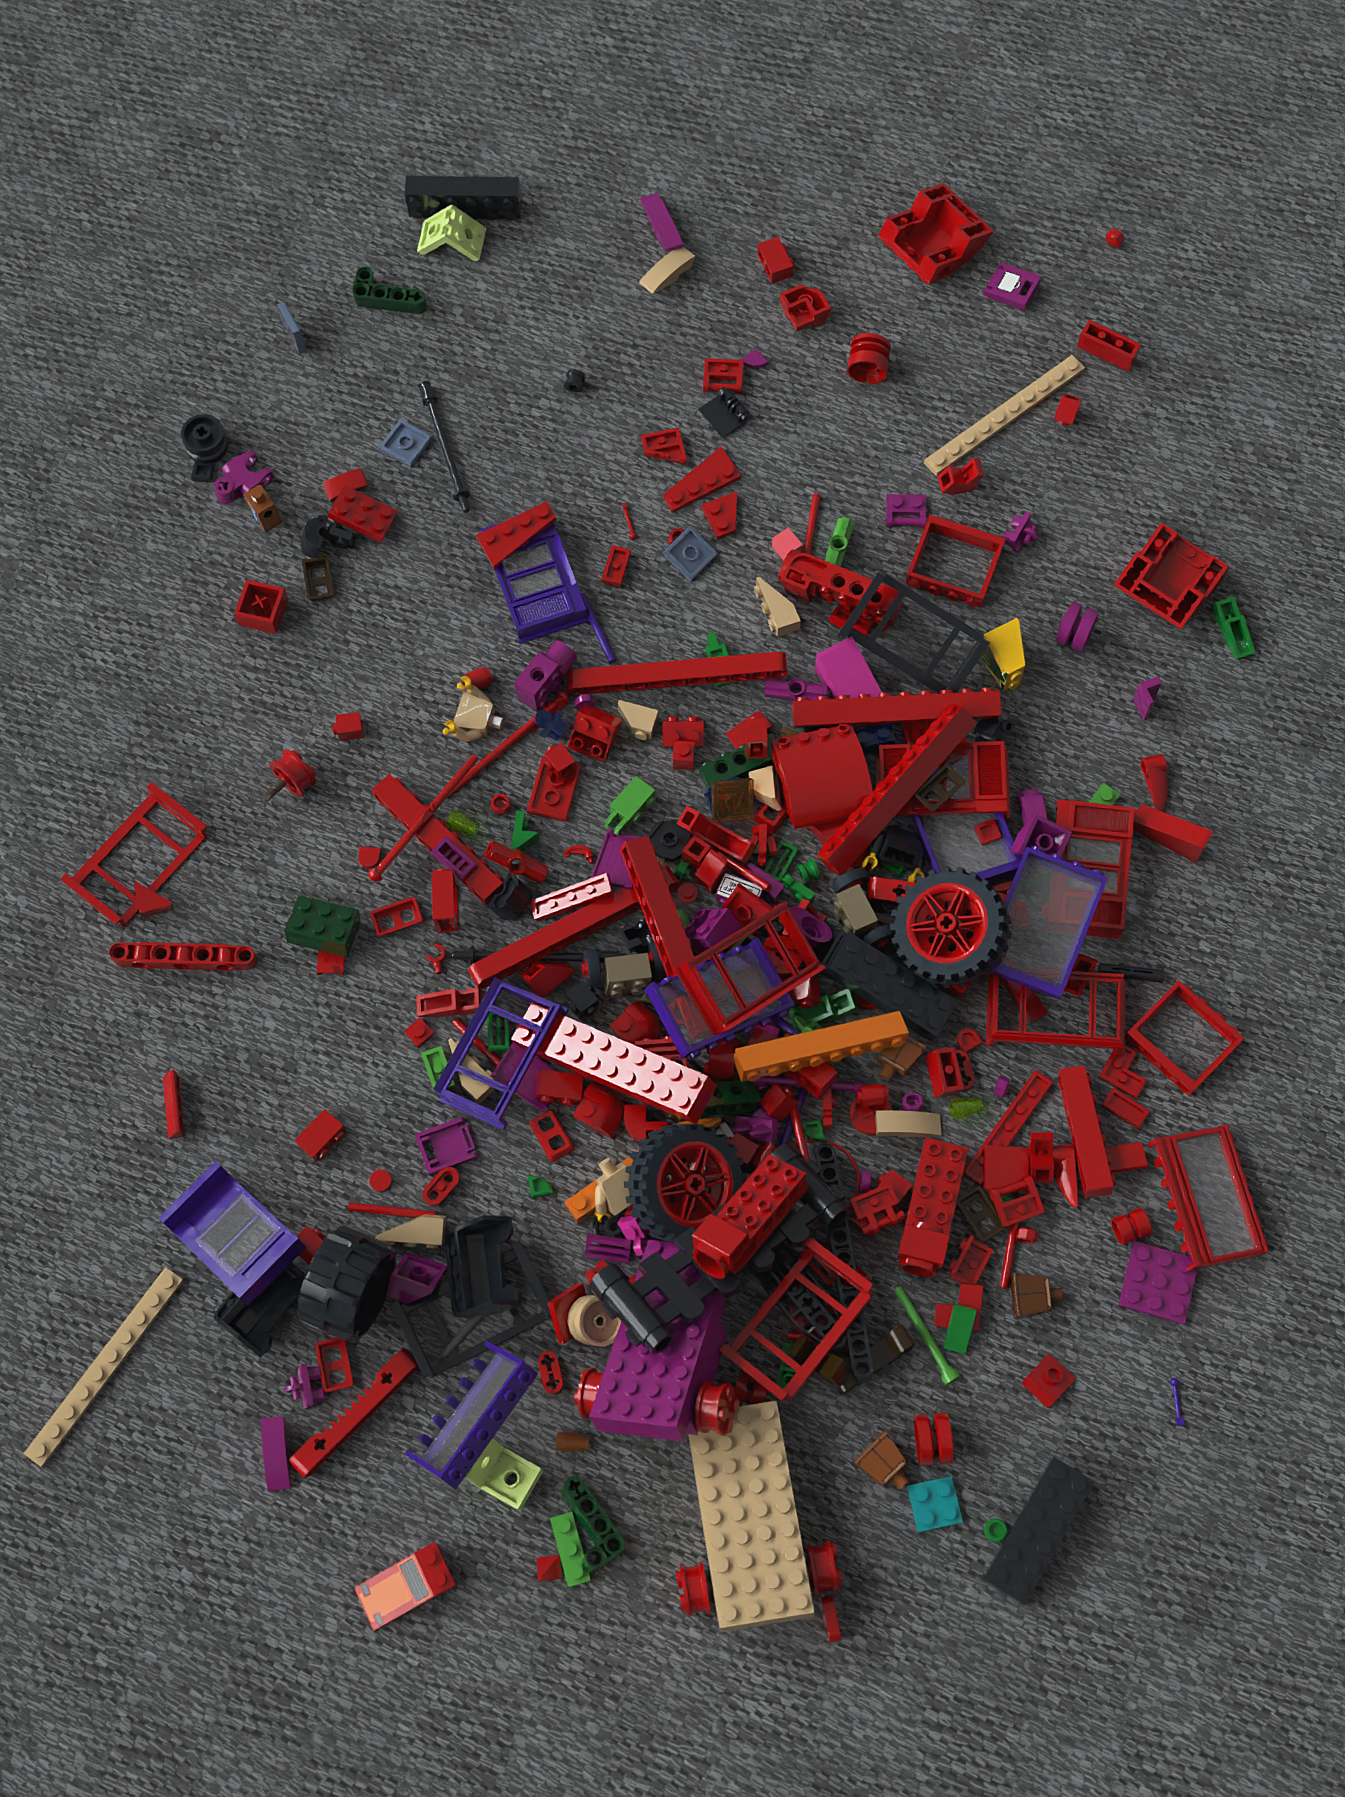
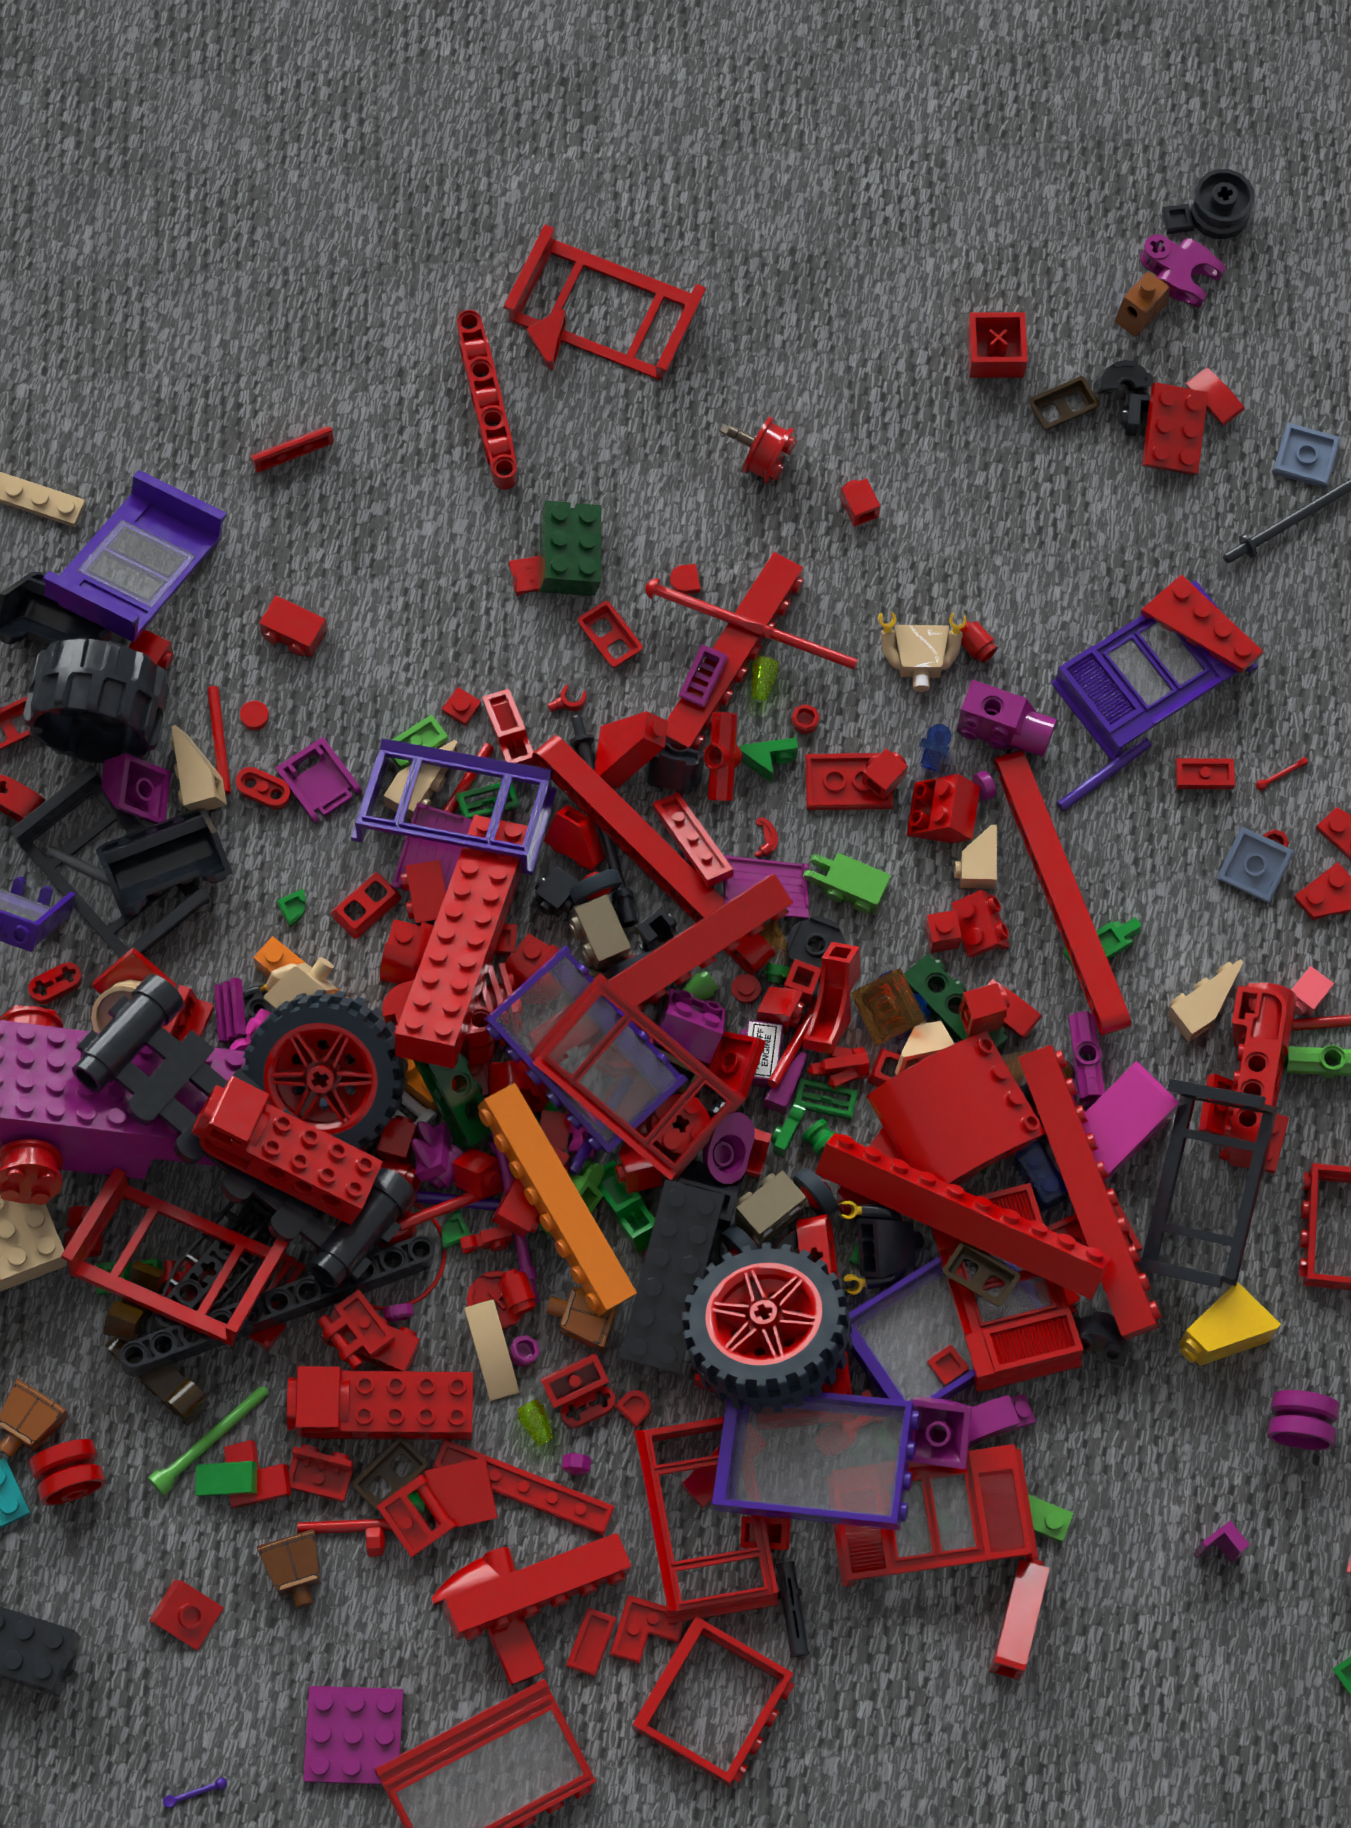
camera: 70 degrees right, 0 degrees up
(444, 900) = (643, 683): red window -> none
(490, 921) = (628, 746): none -> red slope
(554, 706) = (958, 743): red bar -> none
(1040, 1157) = (479, 1537): red brick -> none
(1128, 1227) = (421, 1681): red wheel -> none
(1155, 775) = (1100, 1589): red piece -> none

